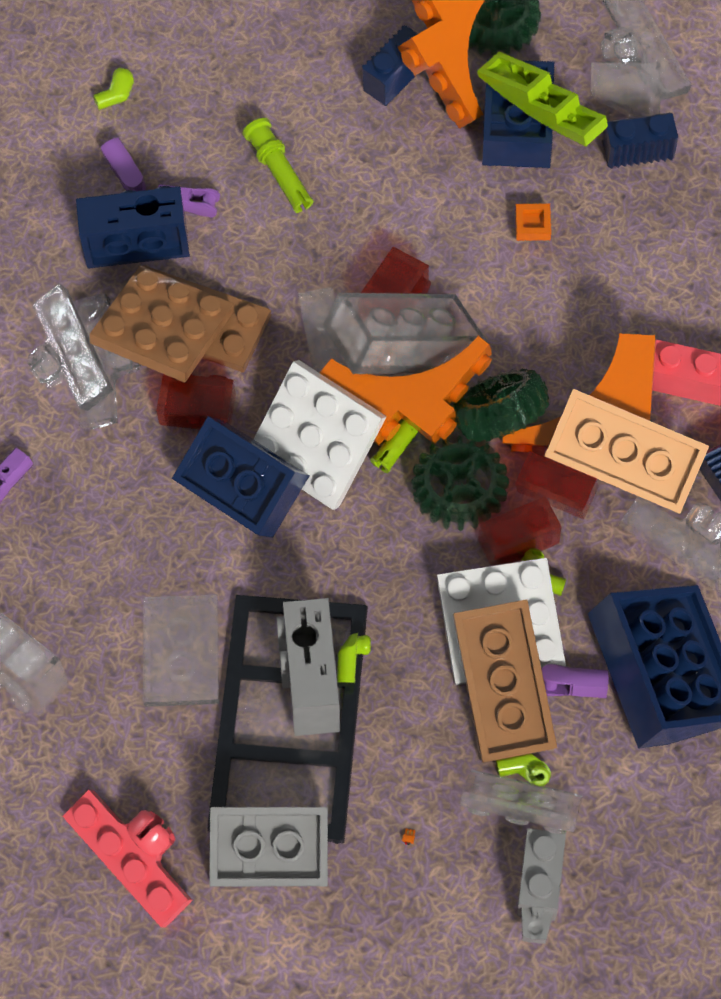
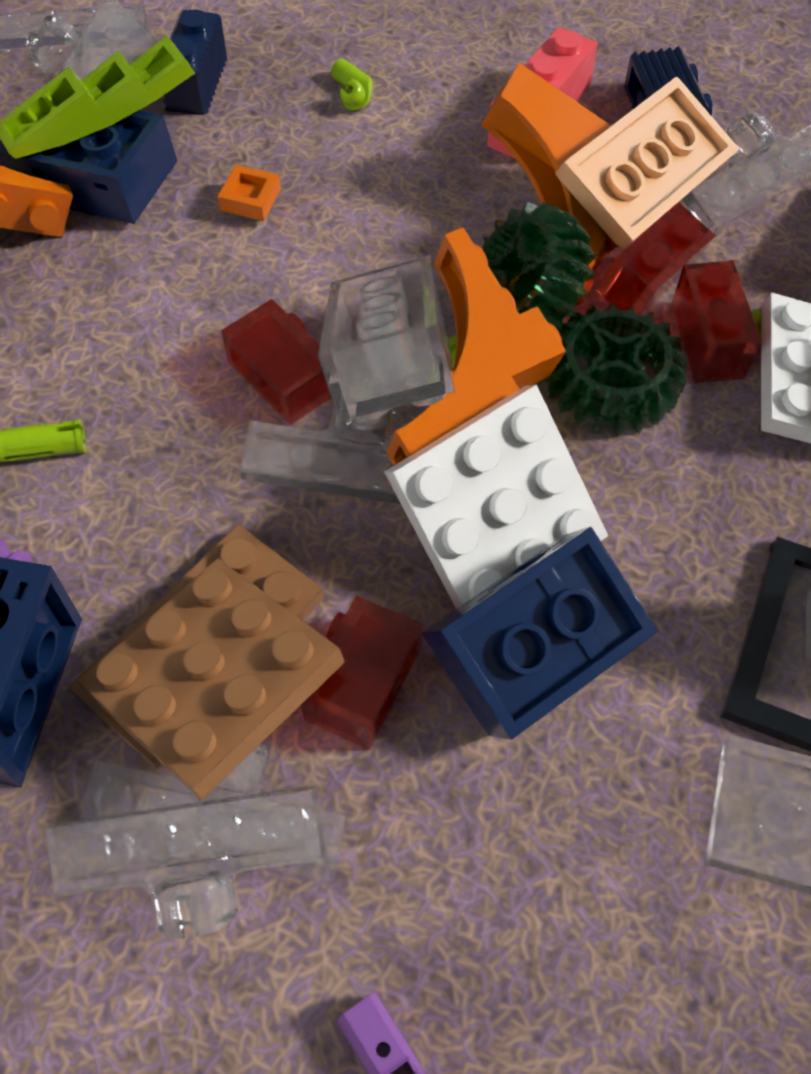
camera: 75 degrees left, 5 degrees down
(671, 255) = (356, 83): none -> lime arm

